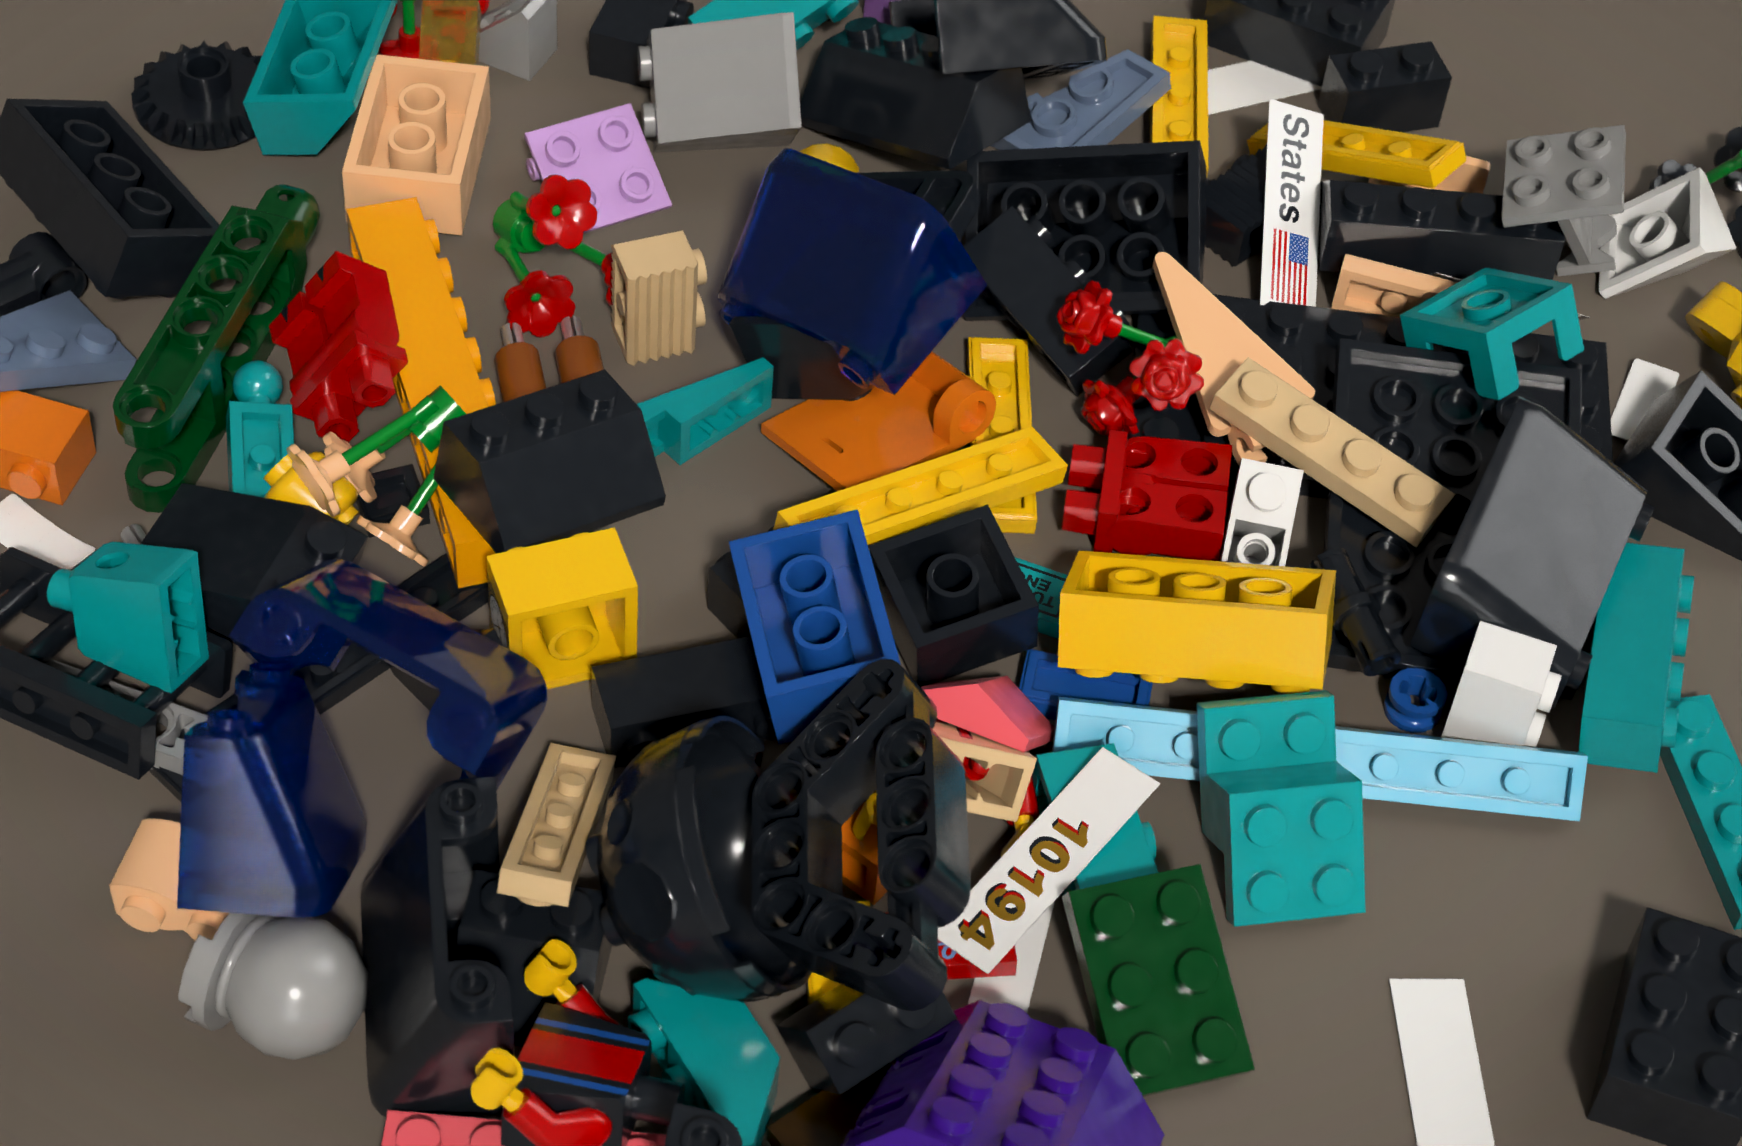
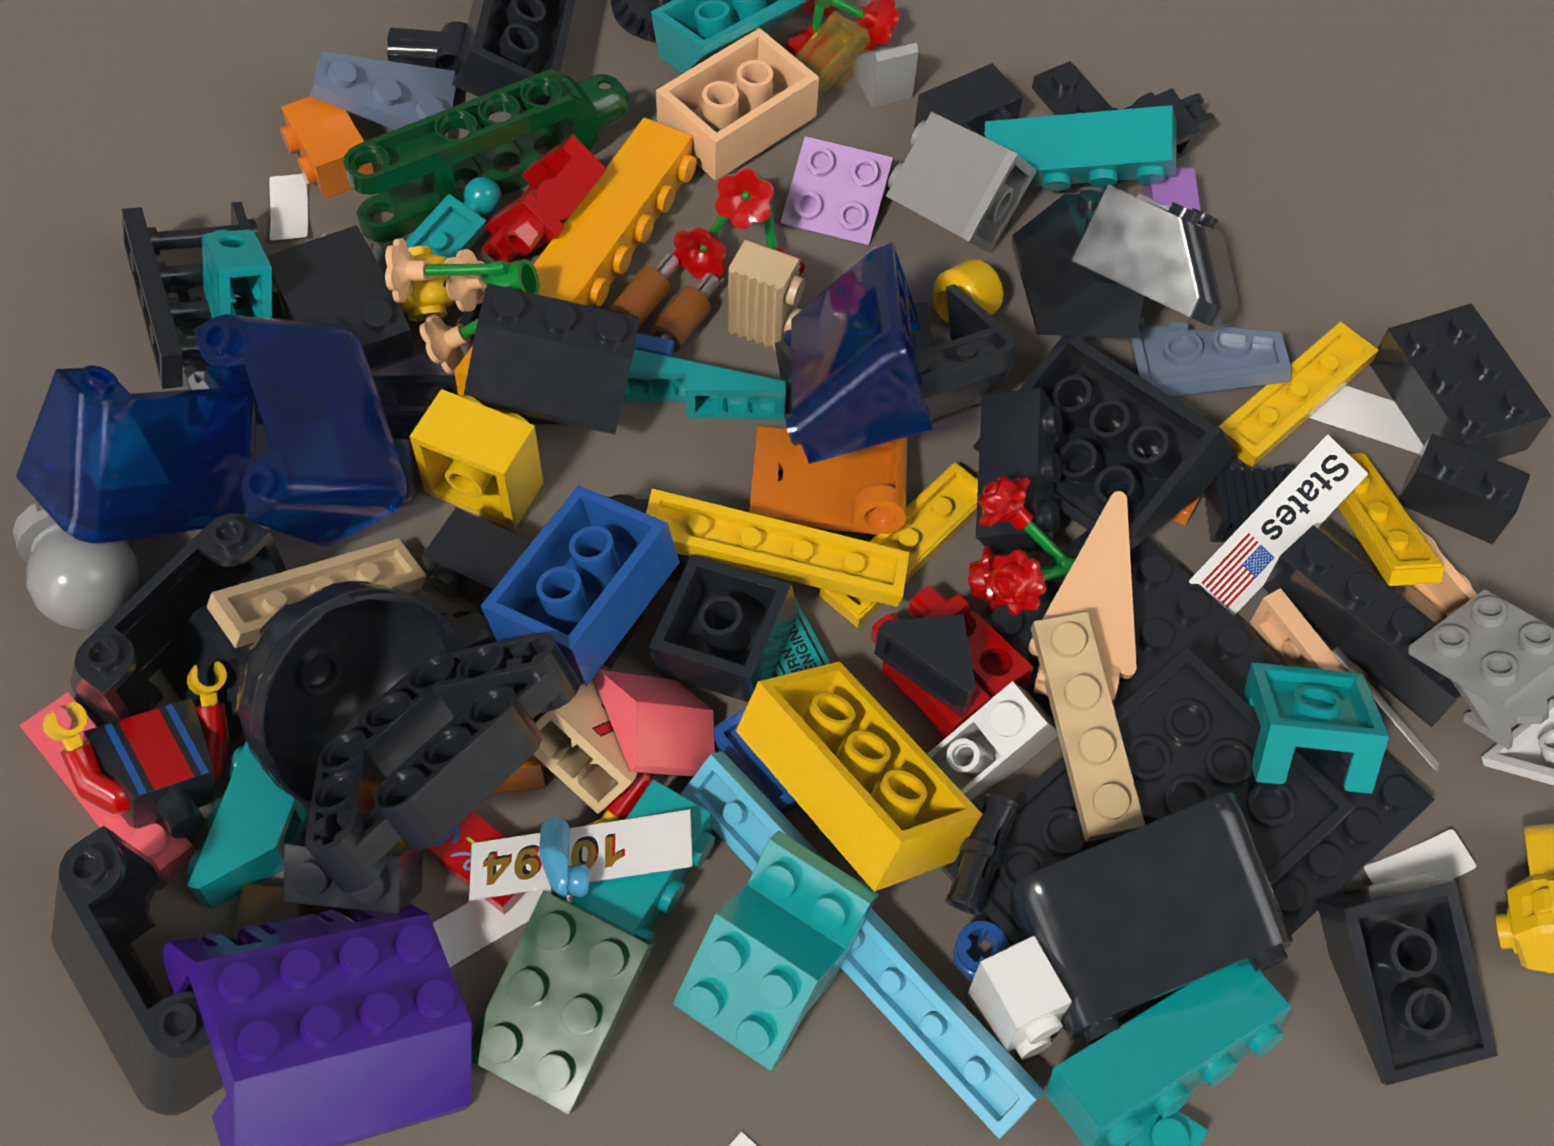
camera: 45 degrees right, 10 degrees up
(1047, 863) = (554, 857): none -> dark azure arm
(1164, 484) = (931, 655): none -> black slope

